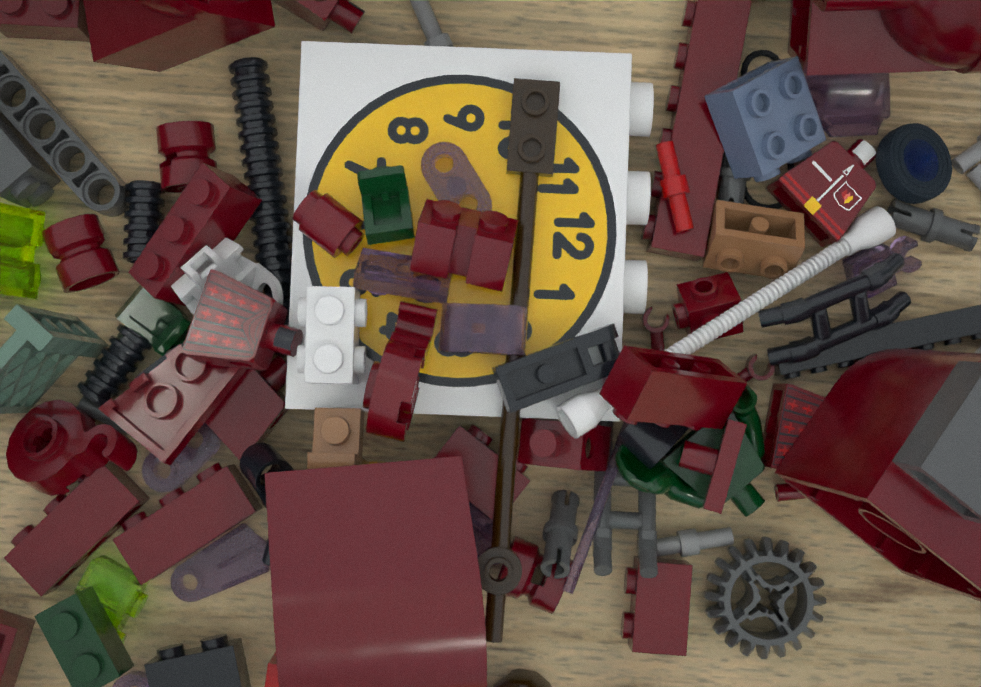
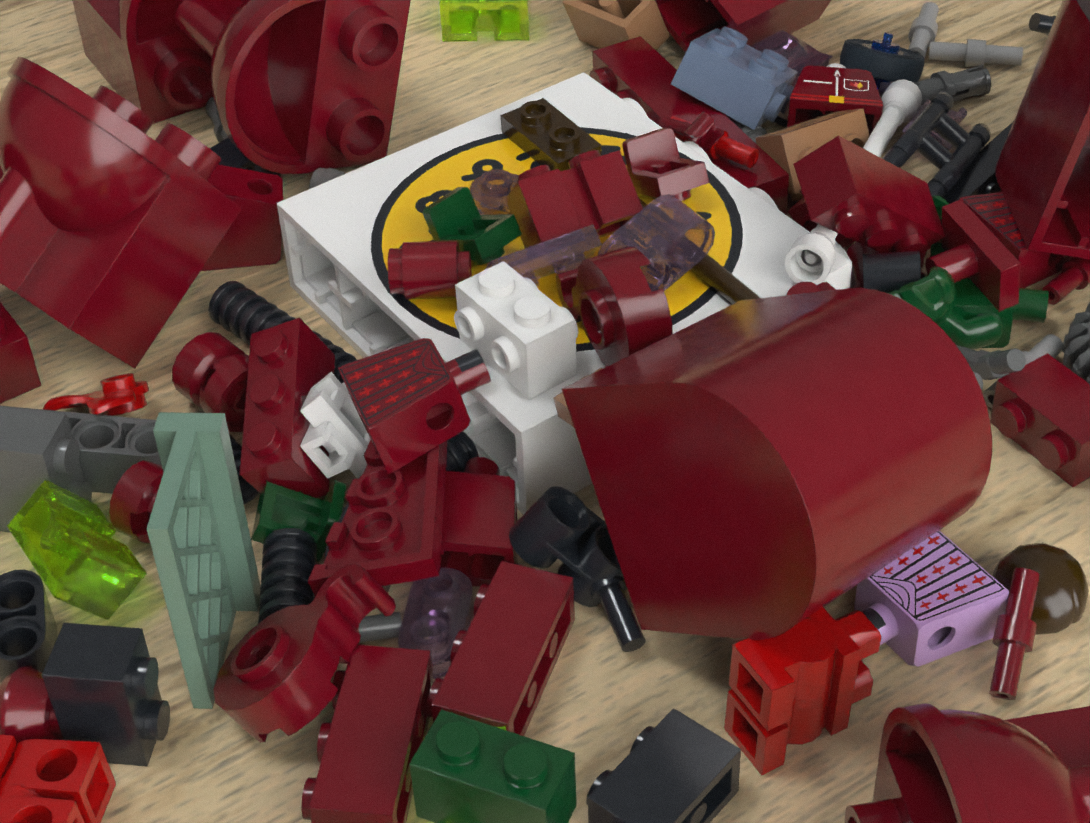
camera: 35 degrees left, 45 degrees down
(102, 109) = (118, 396): none -> red plate
(222, 564) = (582, 693): clear purple piece -> none
(556, 369) = (752, 236): black plate -> none
(565, 244) = (658, 169): none -> bracket
(661, 188) = (701, 131): none -> dark red hand

